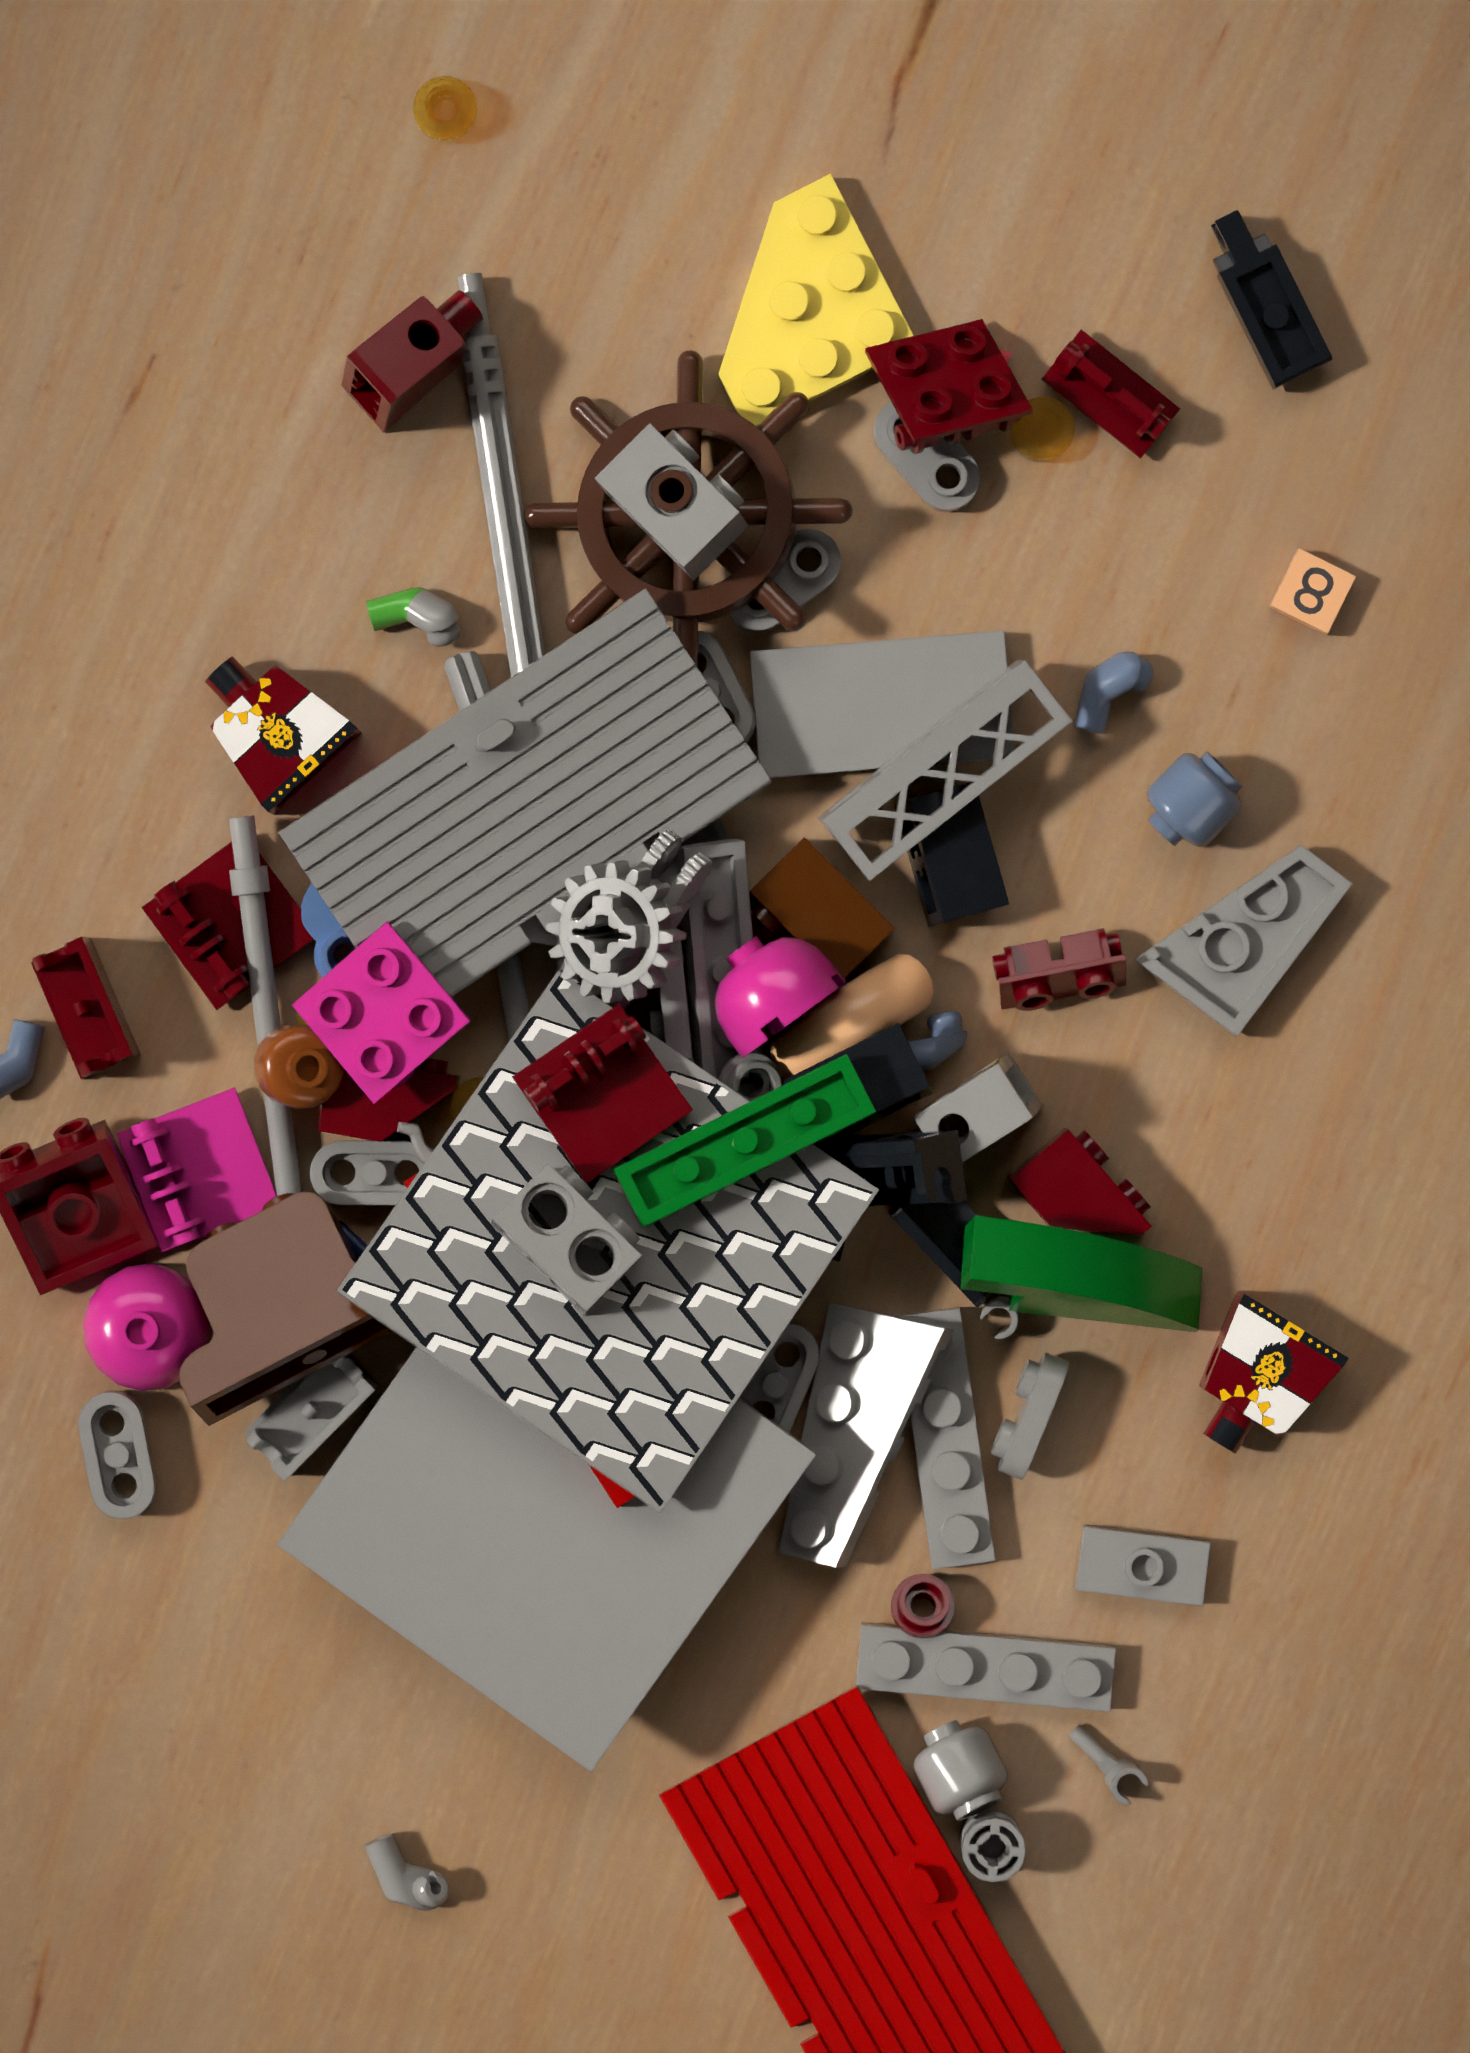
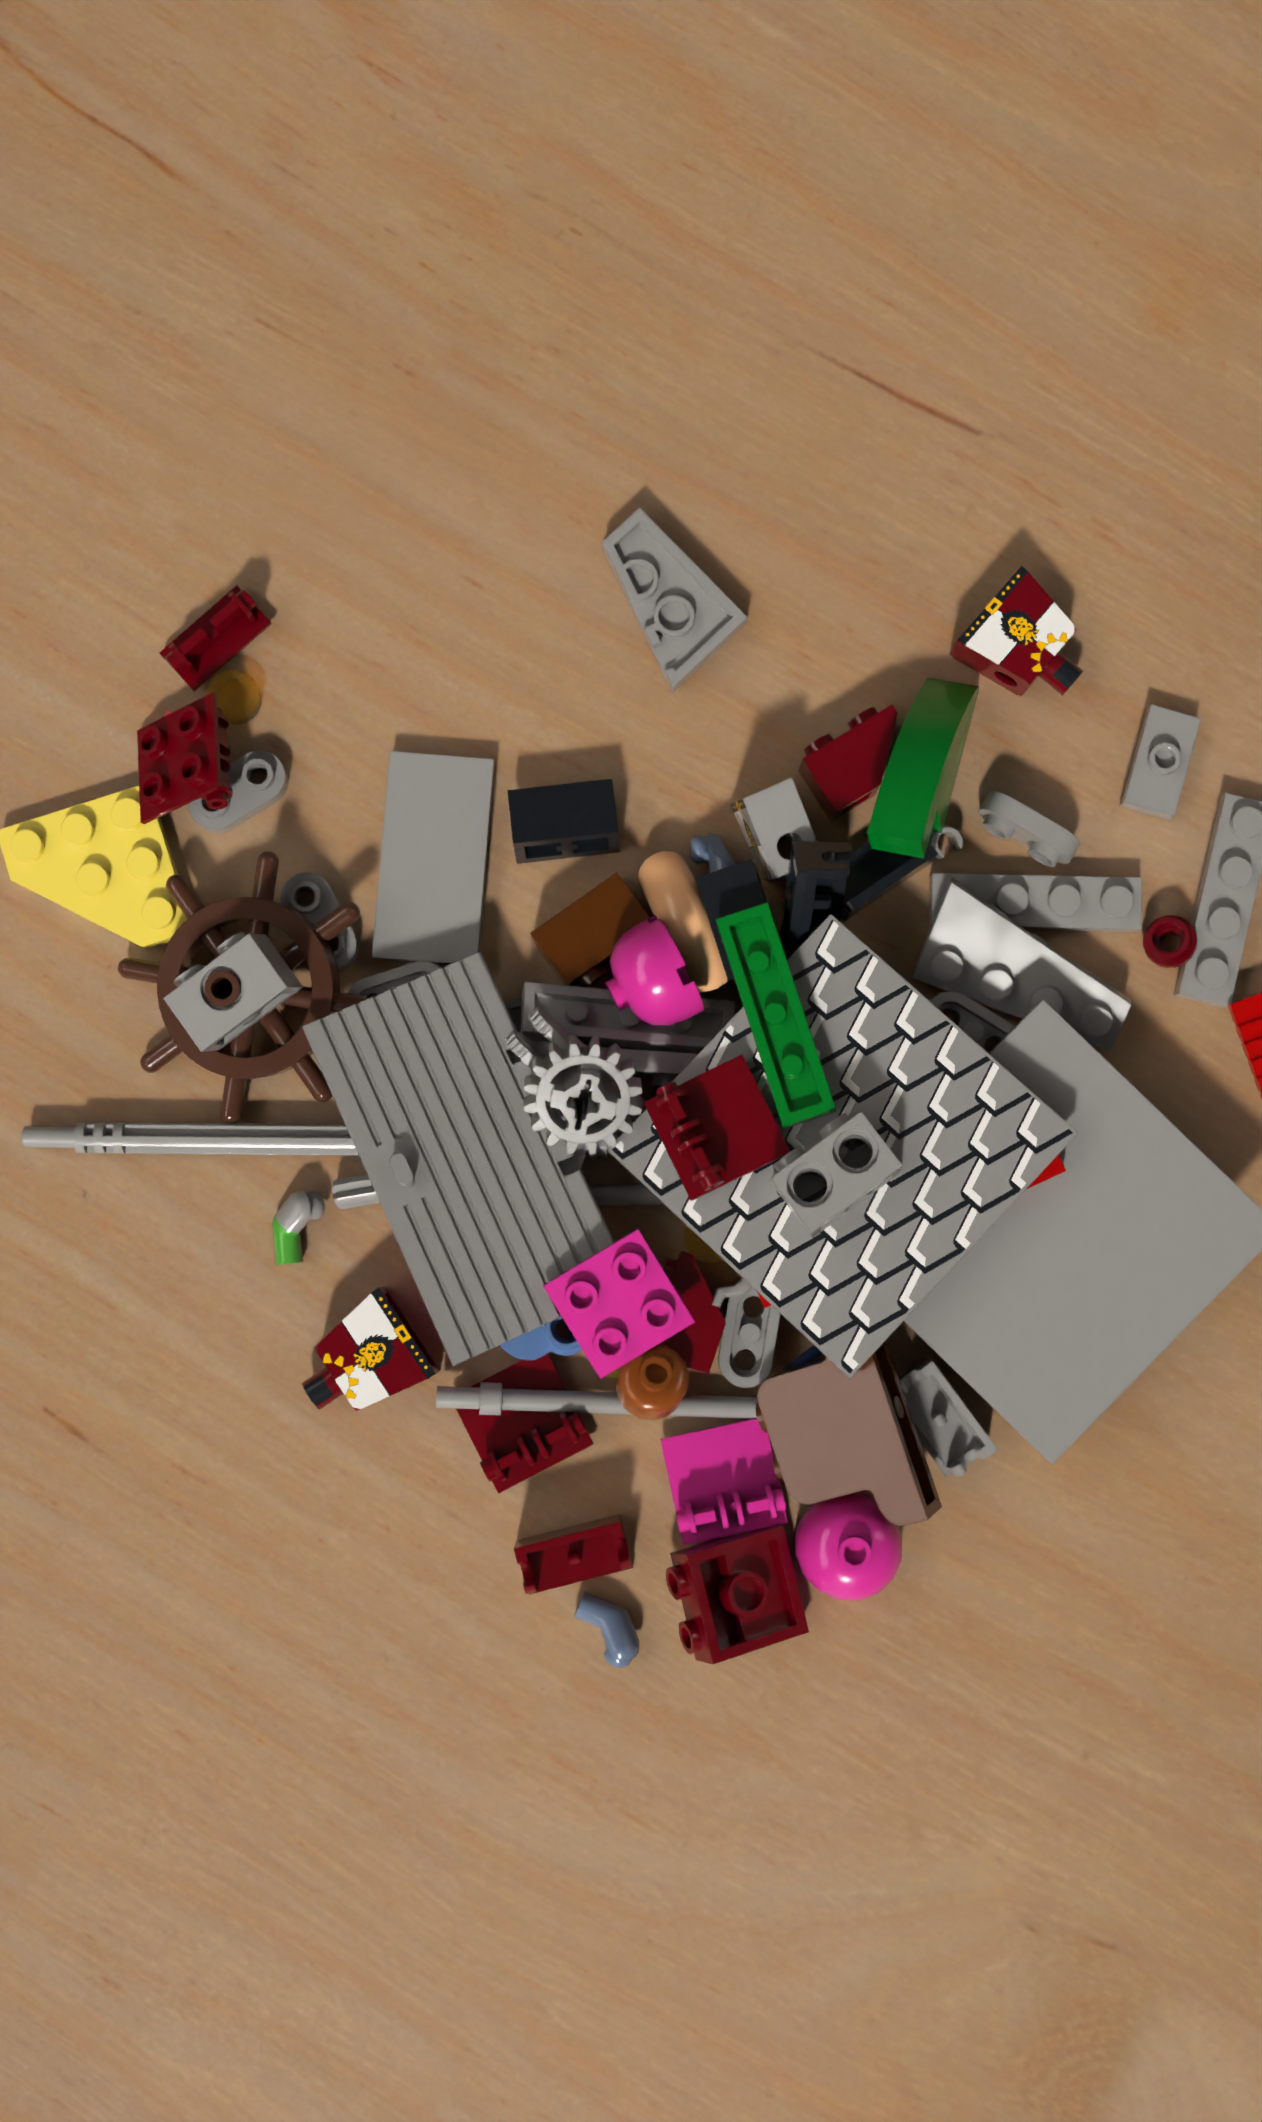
camera: 85 degrees left, 5 degrees down
(118, 1453) = (950, 1587): light grey plate -> none
(391, 374) = (79, 1196): dark red torso -> none
(764, 1069) = (719, 996): light grey plate -> none
(927, 751) = (475, 821): light grey fence -> none
(1089, 968) = (671, 726): dark red hinge -> none
(1106, 682) = (446, 677): sand blue arm -> none
(1194, 799) = (551, 620): sand blue head -> none
(1267, 303) = (163, 502): black hinge -> none
(1312, 591) = (401, 506): light nougat tile -> none

